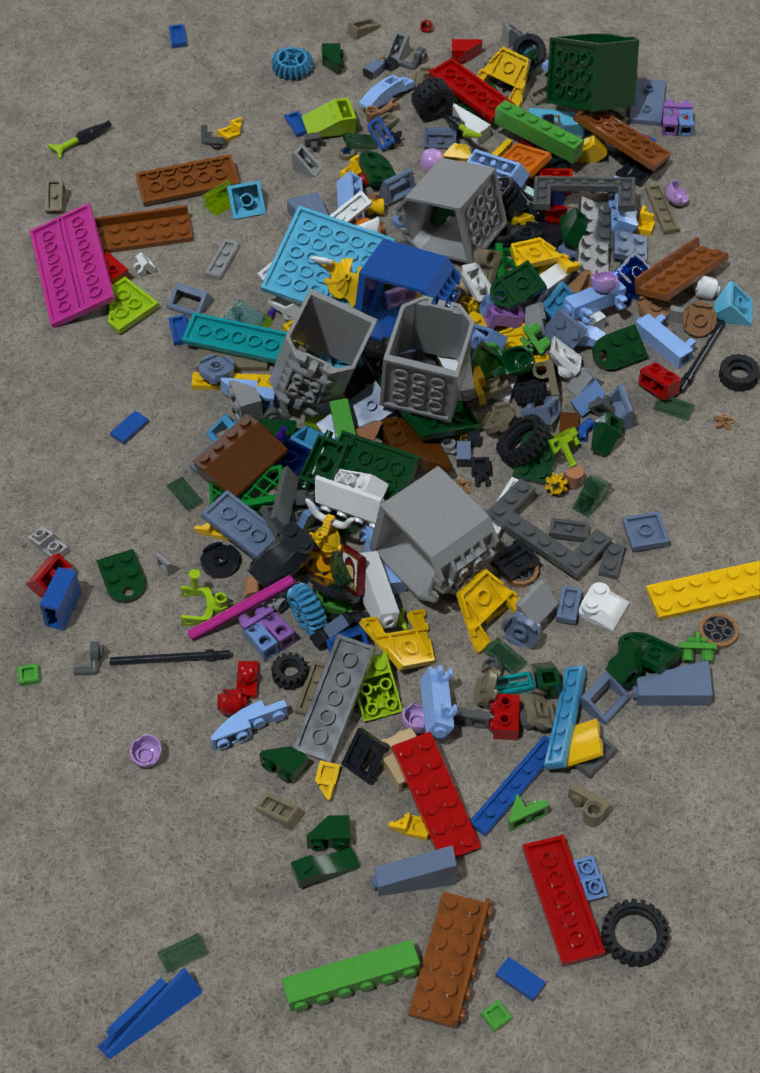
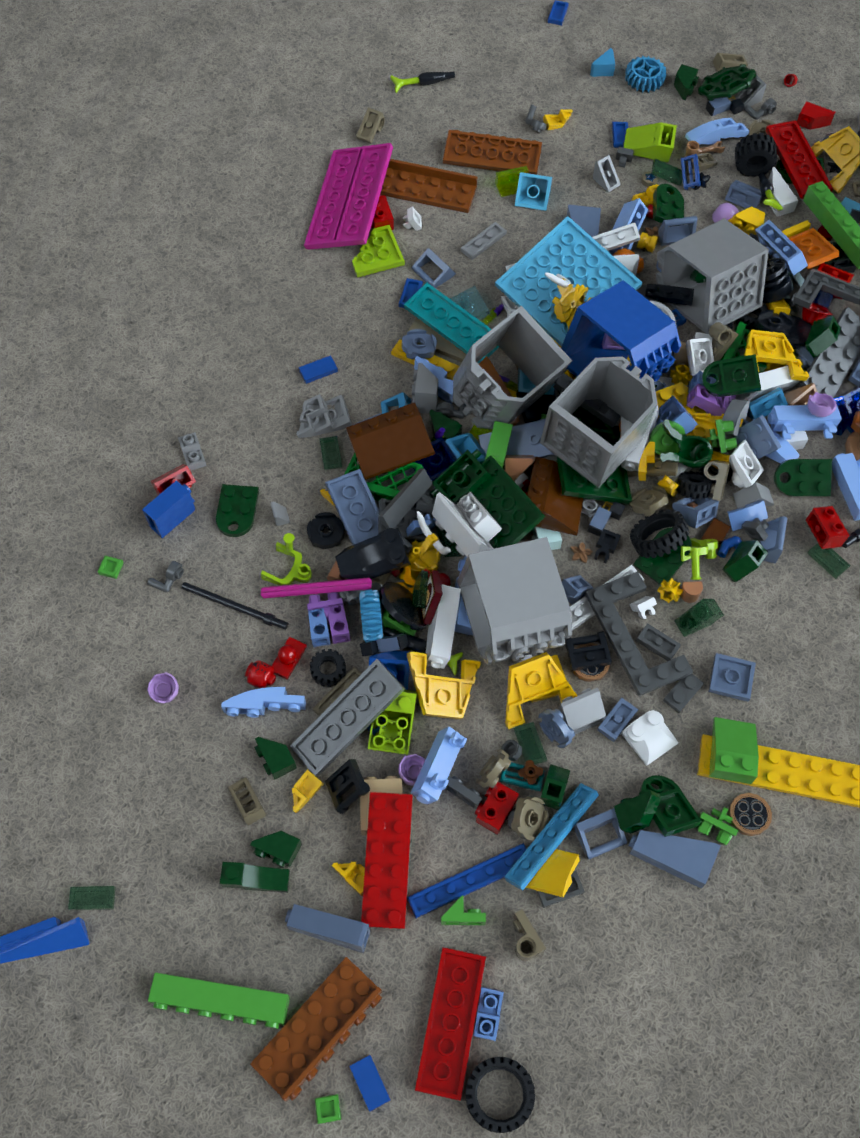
camera: 25 degrees right, 10 degrees up
(156, 470) = (319, 420): none -> light grey slope
(249, 68) = (604, 65): none -> dark azure slope
(372, 45) = (727, 82): none -> dark green plate
(425, 241) = (670, 294): none -> black hinge
(510, 398) = (669, 485): none -> yellow slope
(519, 680) = (530, 778): none -> reddish brown plate
(539, 505) = (642, 605): none -> white tile
(680, 585) = (734, 751): none -> bright green slope

